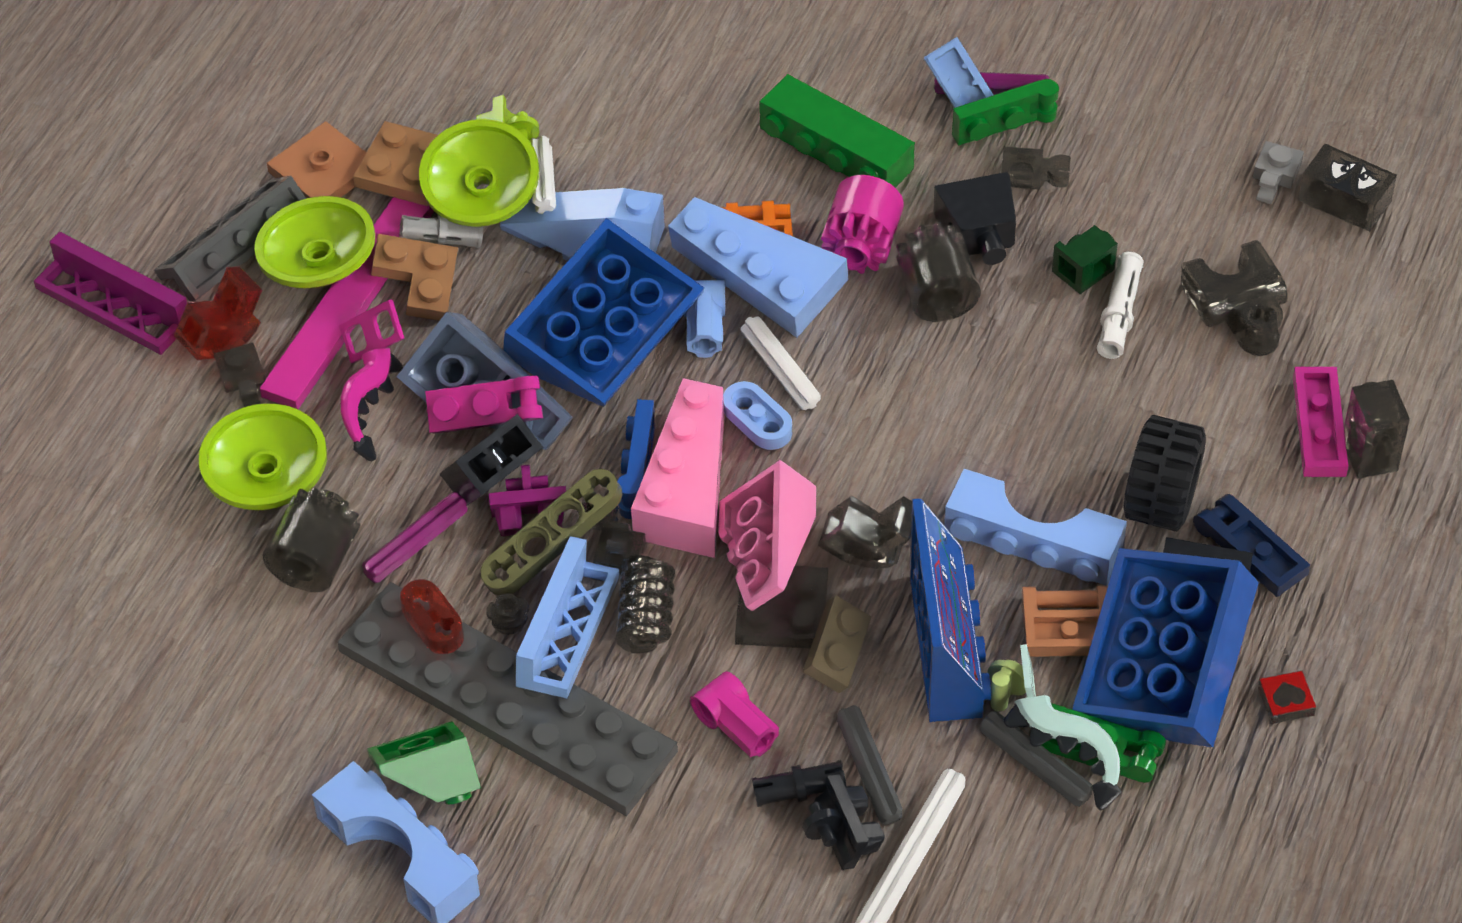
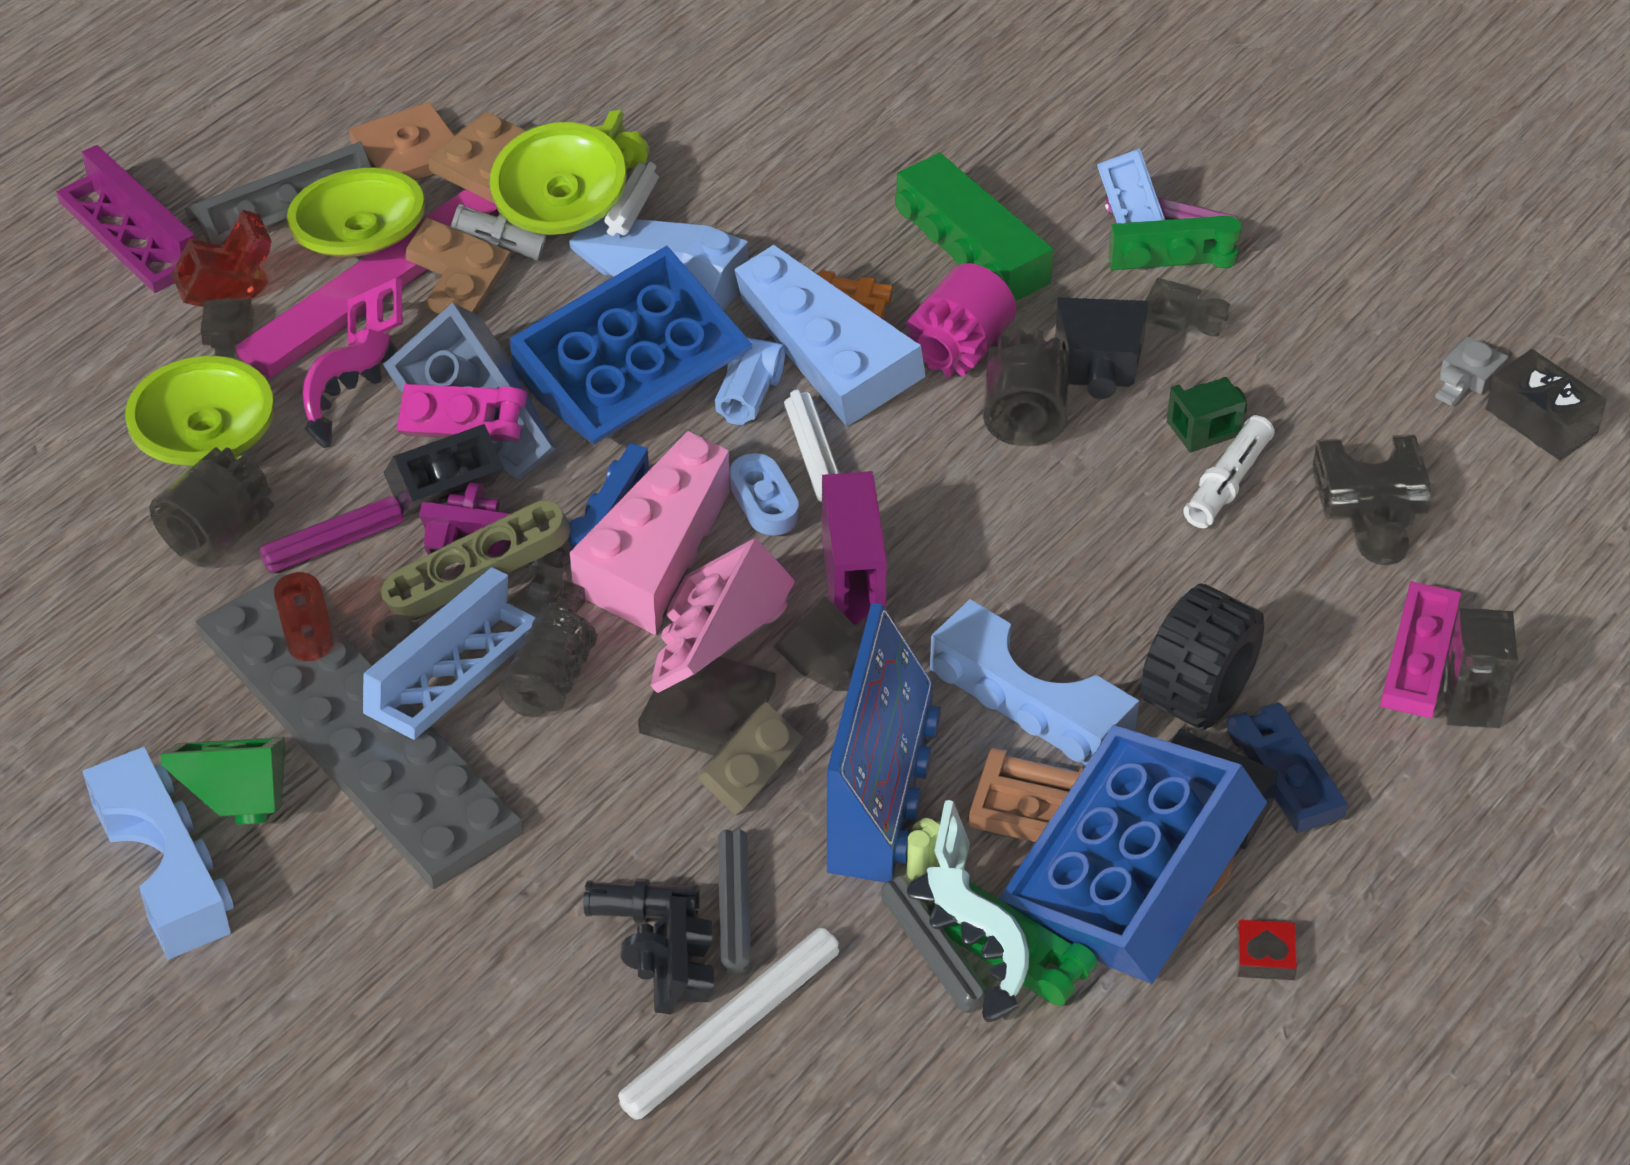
camera: 15 degrees right, 5 degrees down
(727, 706) = (597, 798): dark pink piece -> none
(856, 447) = (853, 543): none -> magenta brick

